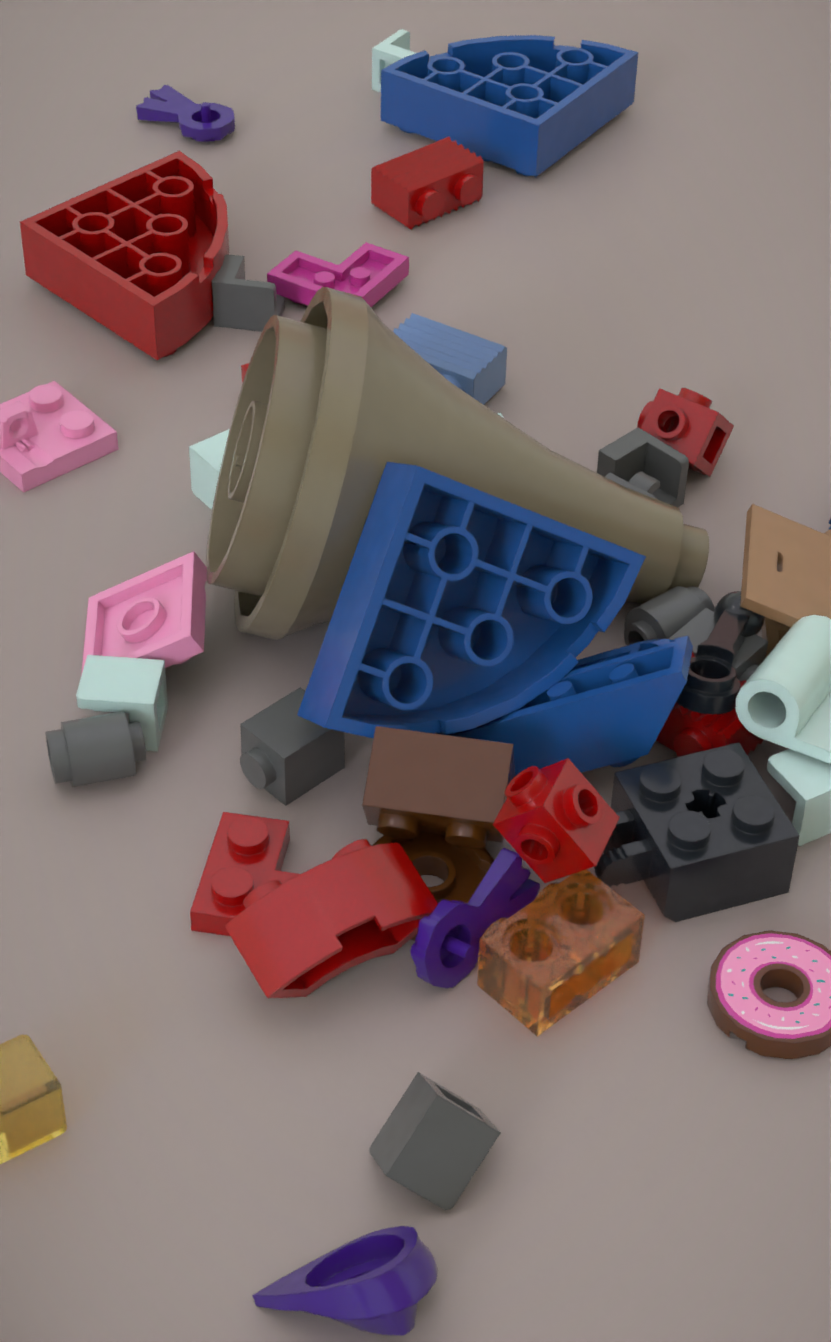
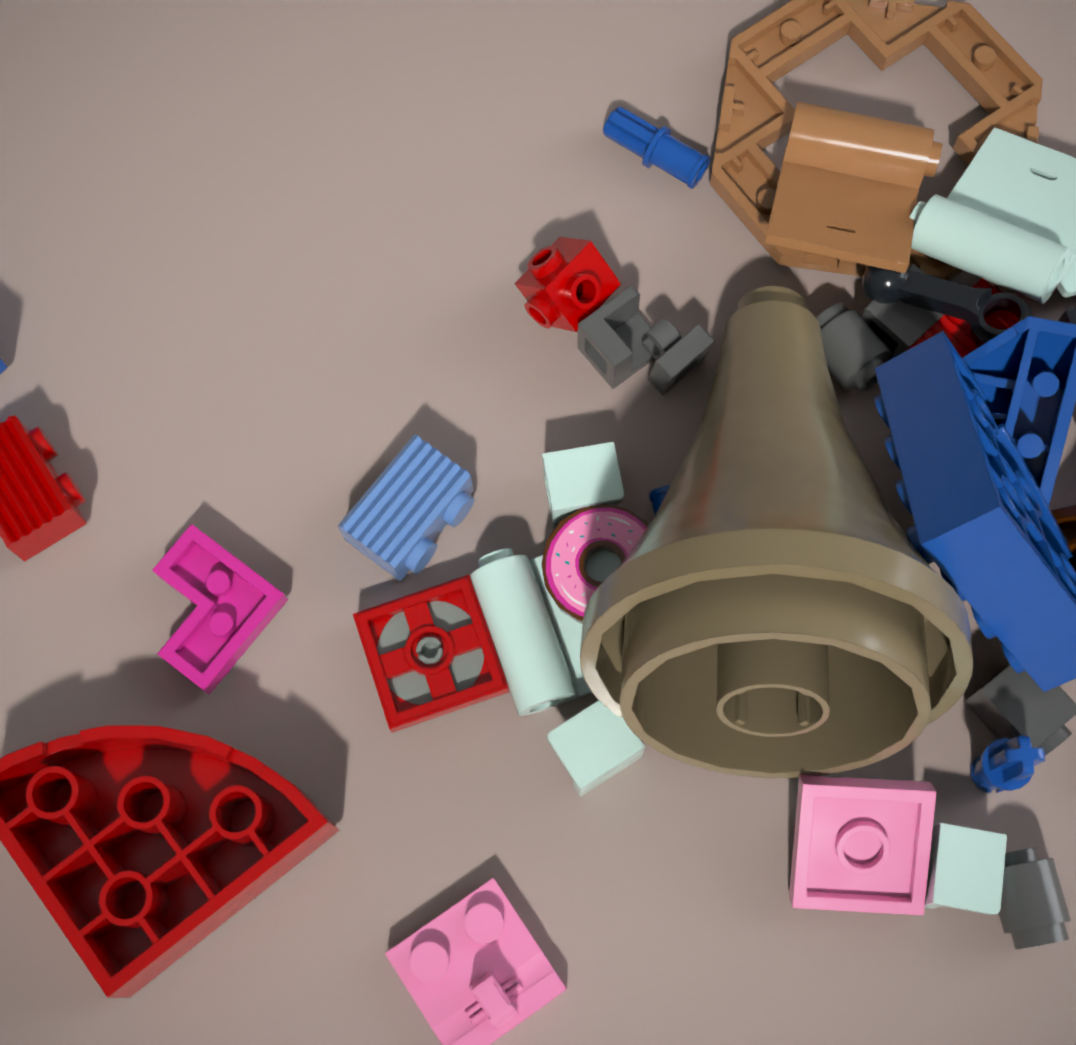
camera: 80 degrees left, 30 degrees up
(223, 707) = (1006, 764): none -> blue axle
(240, 301) = (241, 715): dark grey panel -> none

